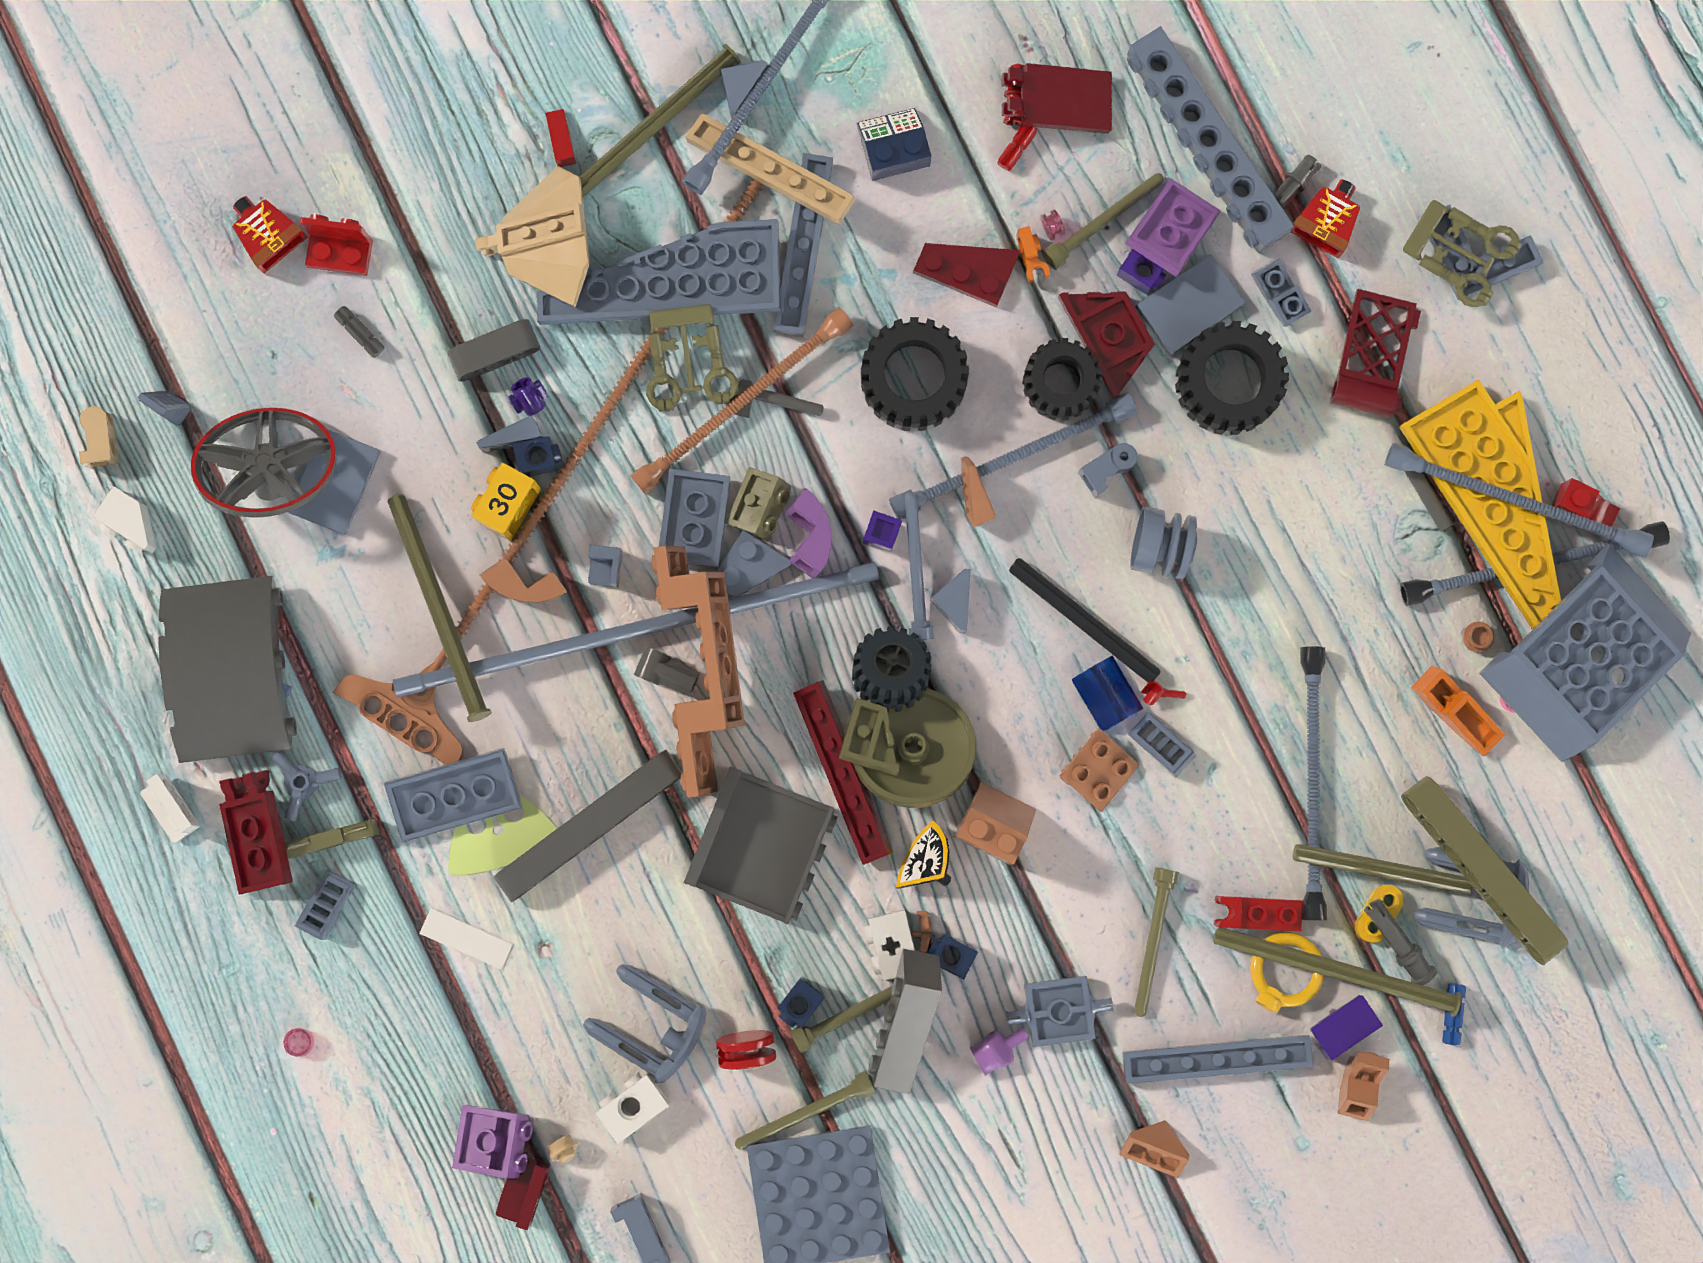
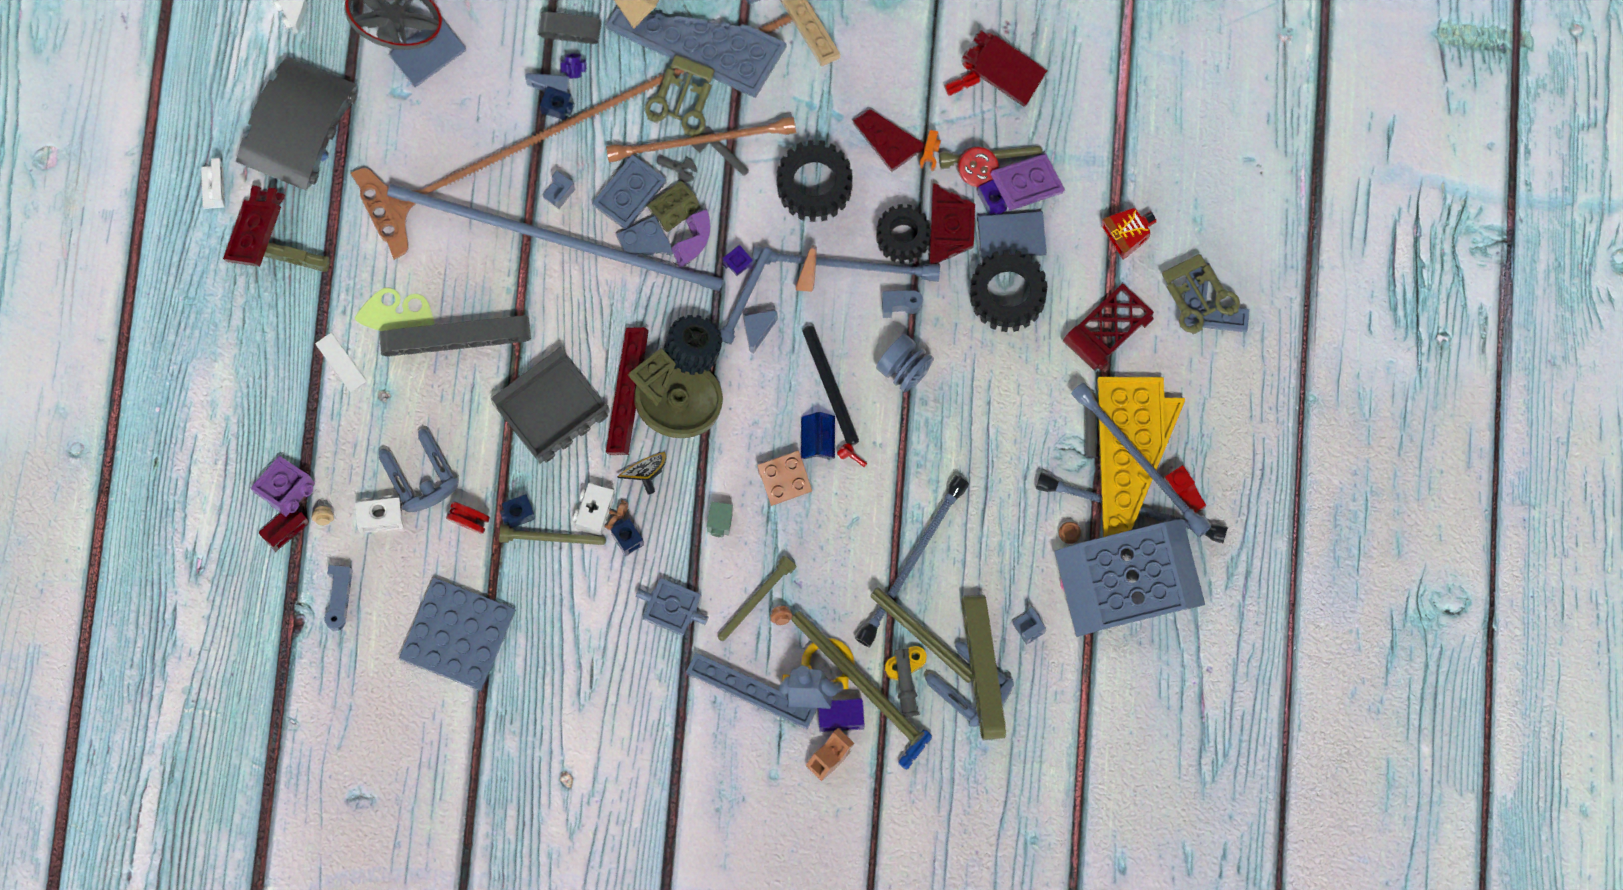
camera: 35 degrees right, 10 degrees down
(292, 1049) = (204, 372): clear pink bush -> none
(301, 782) = (300, 214): sand blue piece -> none
(309, 910) = (267, 304): sand blue slope -> none
(438, 609) = (443, 158): olive axle -> none
(453, 795) = (385, 272): sand blue plate -> none
(505, 501) = (521, 117): yellow brick -> none
(505, 581) = (493, 166): nougat brick -> none
(660, 669) = (554, 269): dark grey piece -> none
(724, 708) = (577, 307): nougat bracket -> none
(734, 451) = (679, 168): none -> dark grey bar
(801, 257) = (789, 75): sand blue plate -> none
(859, 1087) = (523, 582): olive piece -> none
(894, 144) = (886, 41): dark blue slope -> none
(907, 1021) = (573, 554): wedge -> none
(996, 824) = (699, 471): nougat slope -> none
(996, 1049) = (619, 608): medium lavender piece -> none
(1052, 224) = (955, 140): clear pink bush -> none
(1052, 868) = (719, 519): none -> sand green brick
(1100, 242) = (976, 165): none -> red head
(1156, 1148) = (680, 722): nougat slope -> none
(1159, 48) = (1082, 70): sand blue brick -> none
(1182, 762) = (836, 500): sand blue slope -> none
(1197, 944) = (781, 615): none -> nougat plate
(1261, 913) = (831, 620): red plate -> none
(1280, 292) = (1073, 259): sand blue slope -> none
(1294, 1022) = (811, 688): none -> sand blue torso
(1296, 180) = (1121, 198): dark grey axle -> none
(1458, 710) = (1029, 569): orange slope -> none
(1500, 782) = (1029, 626): none -> sand blue panel

